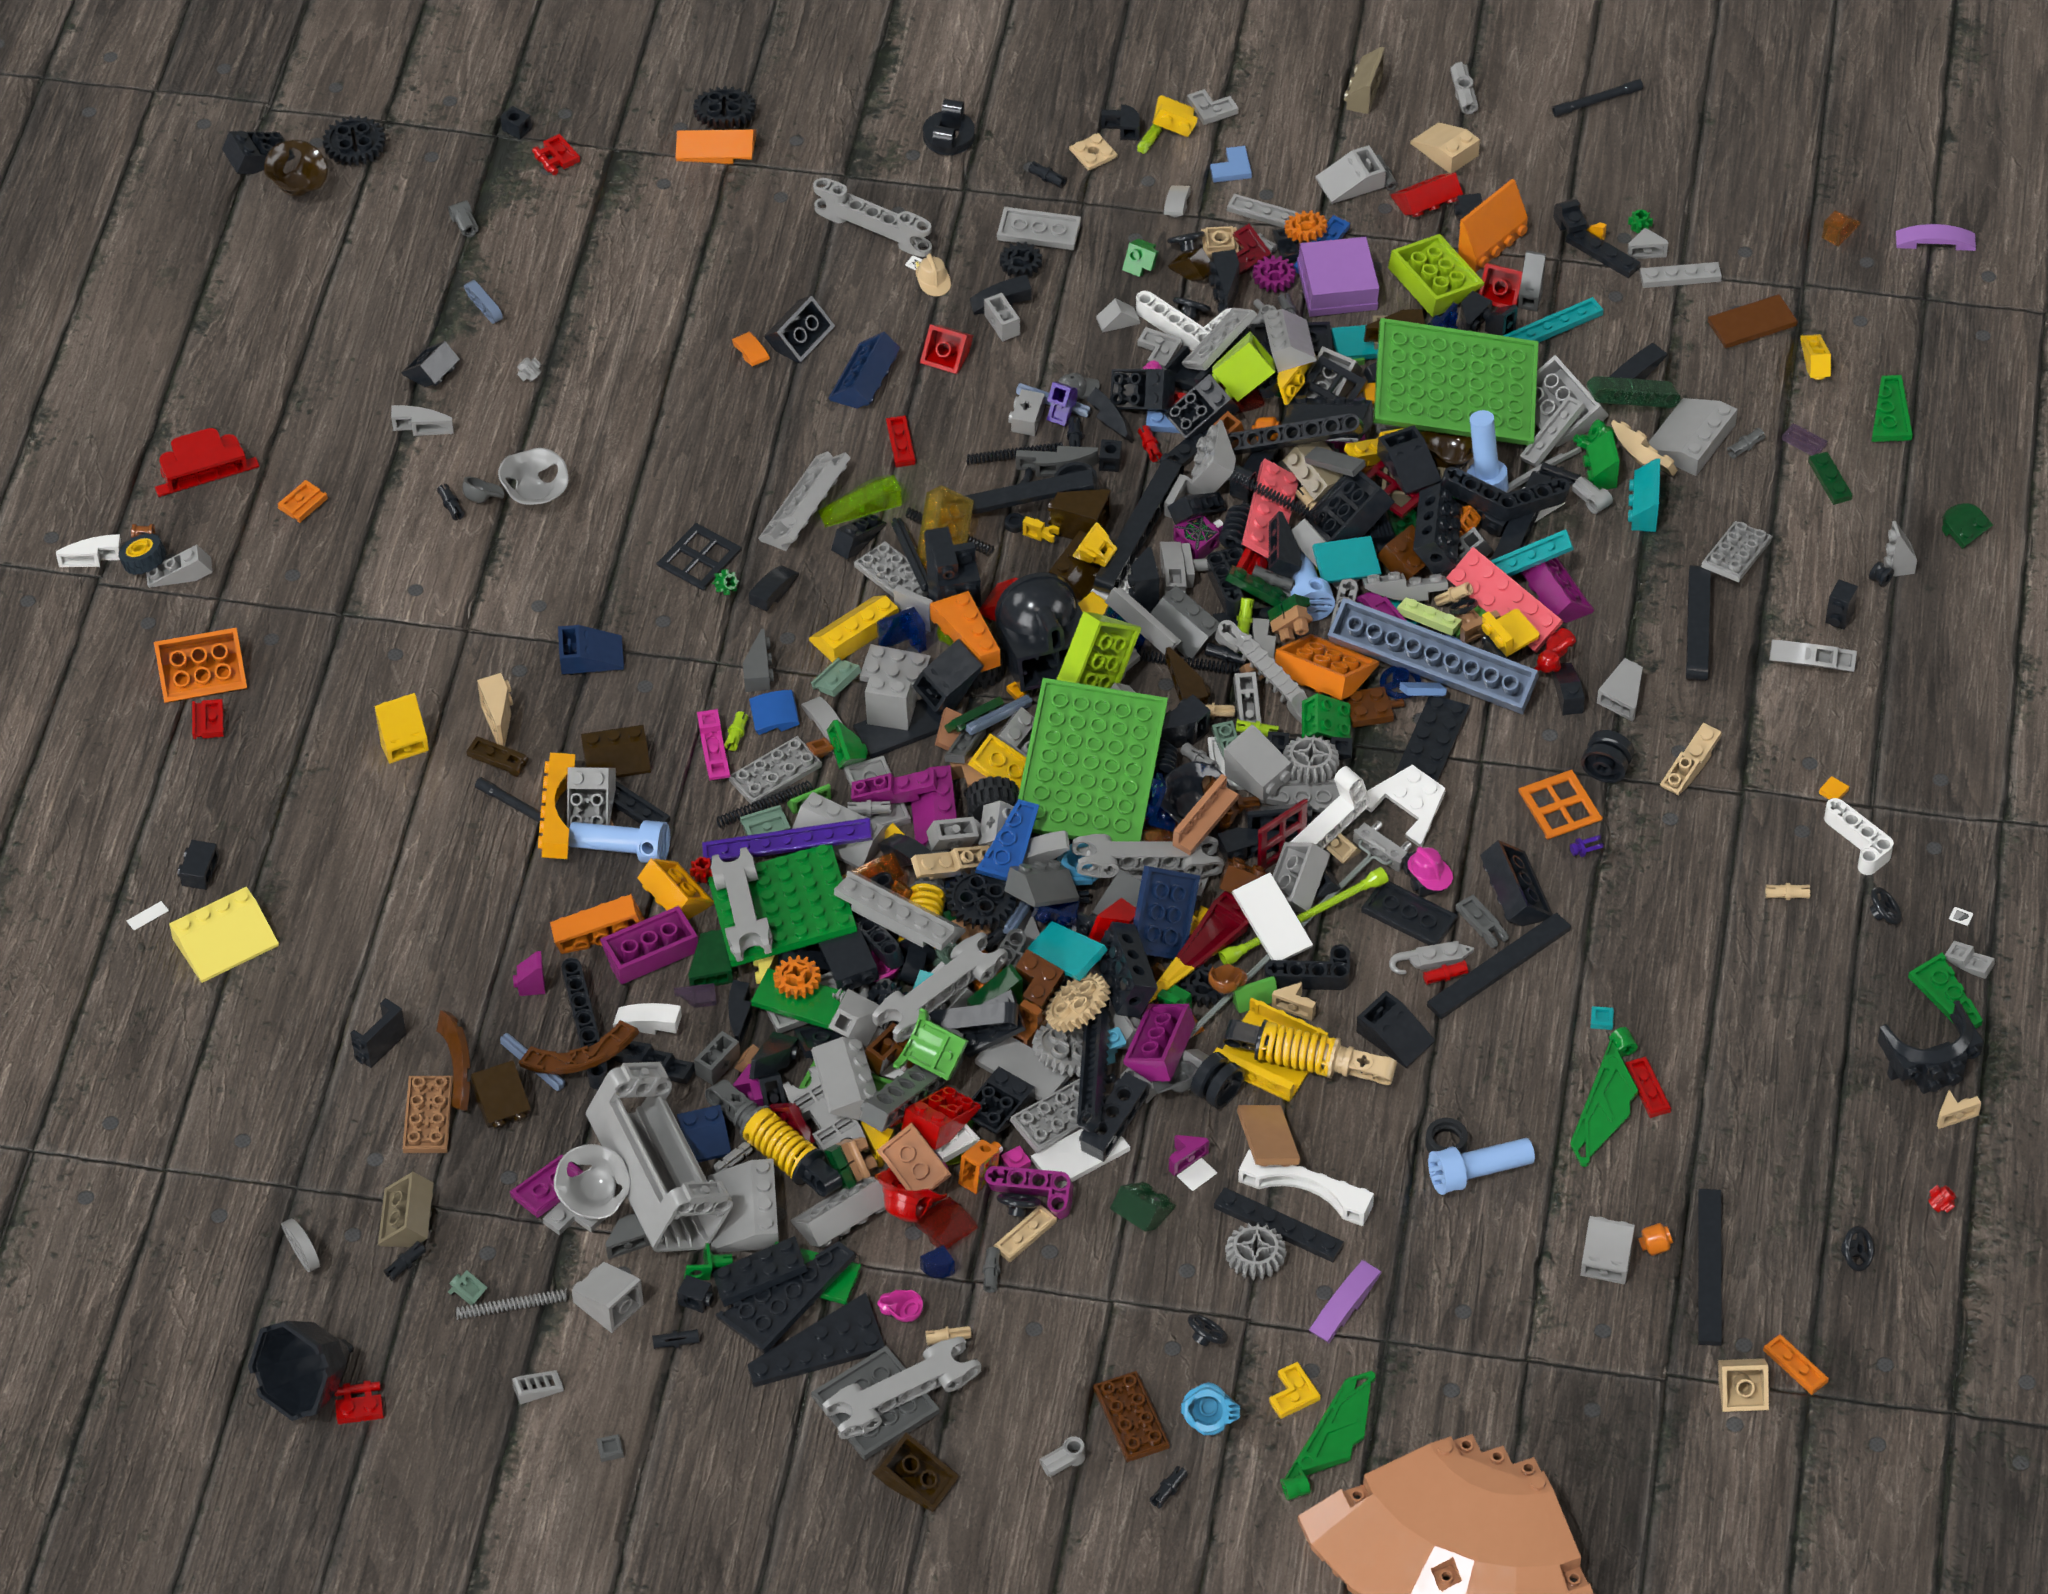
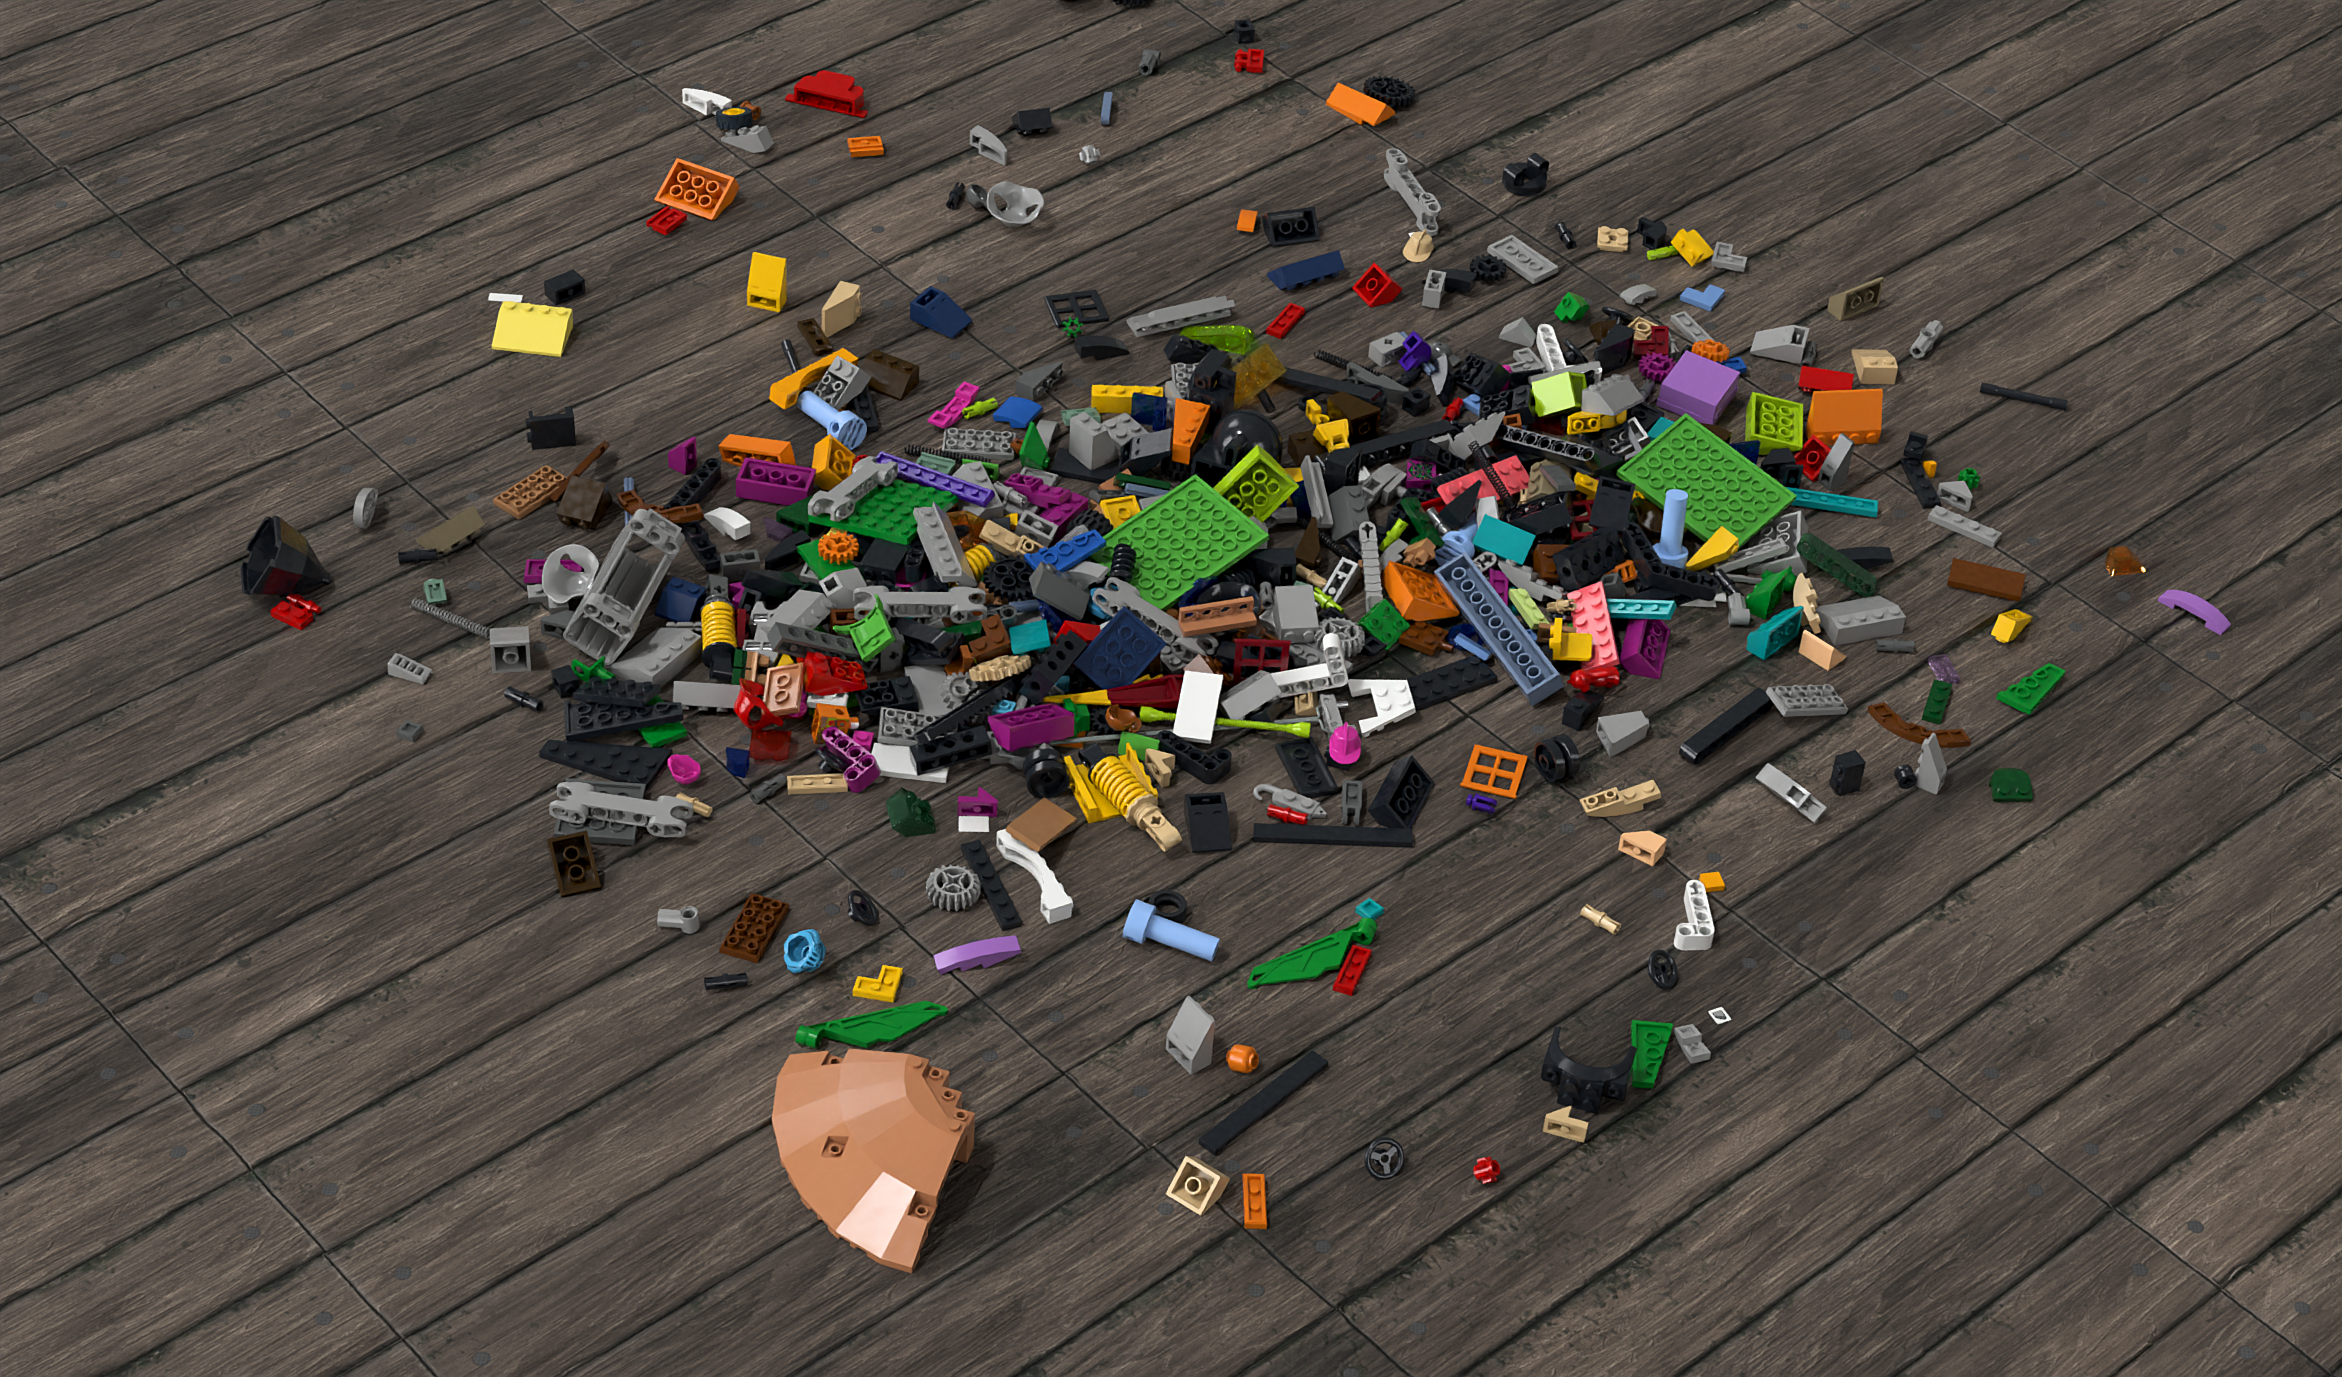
camera: 35 degrees right, 10 degrees down
(1070, 817) = (1123, 562): none -> black piece
(1524, 440) = (1716, 549): none -> yellow slope
(1696, 492) = (1819, 651): none -> light nougat slope
(1753, 793) = (1643, 846): none -> light nougat slope
(1843, 522) = (1891, 721): none -> reddish brown tile

